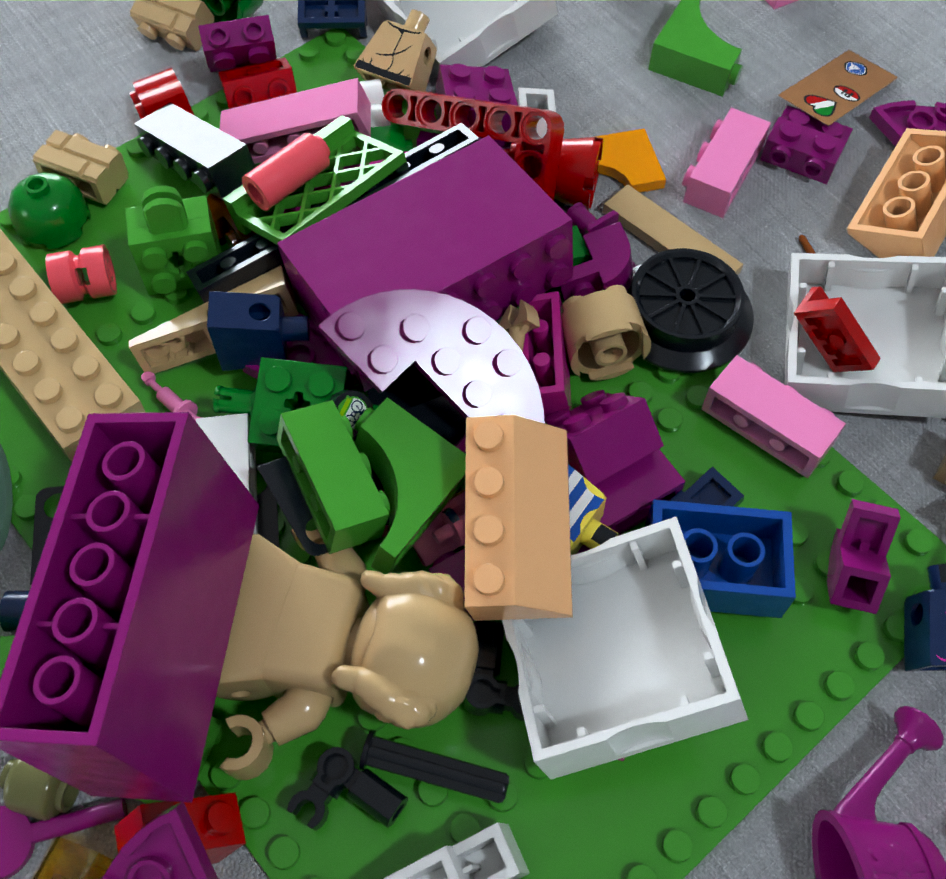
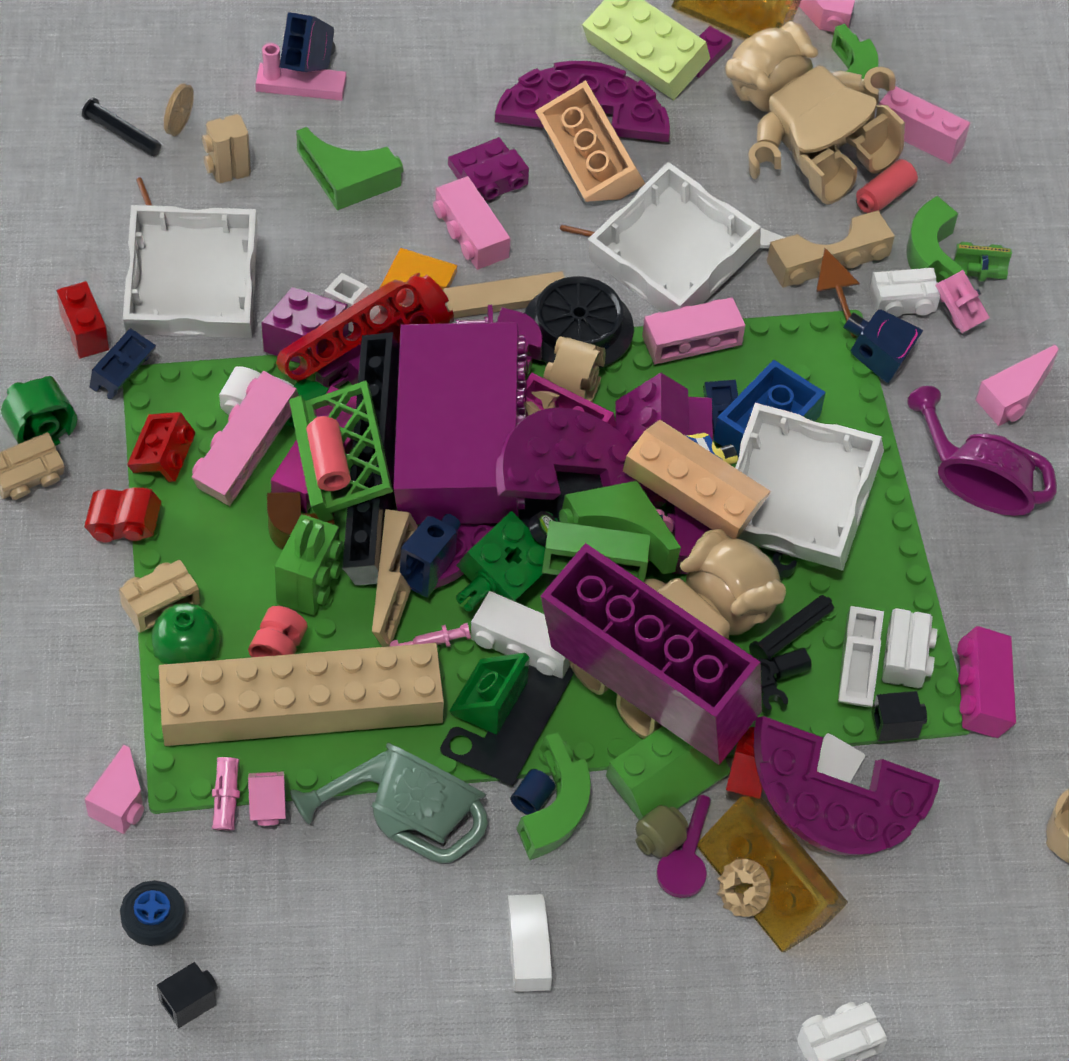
camera: 60 degrees left, 5 degrees down
(194, 149) = (221, 510): brick -> none
(237, 43) = (118, 437): magenta plate -> none
(399, 54) = (227, 341): tan torso -> none
(836, 332) = (668, 258): red bracket -> none
(838, 87) = (455, 118): medium nougat sticker -> none
(858, 555) = (813, 354): magenta brick -> none

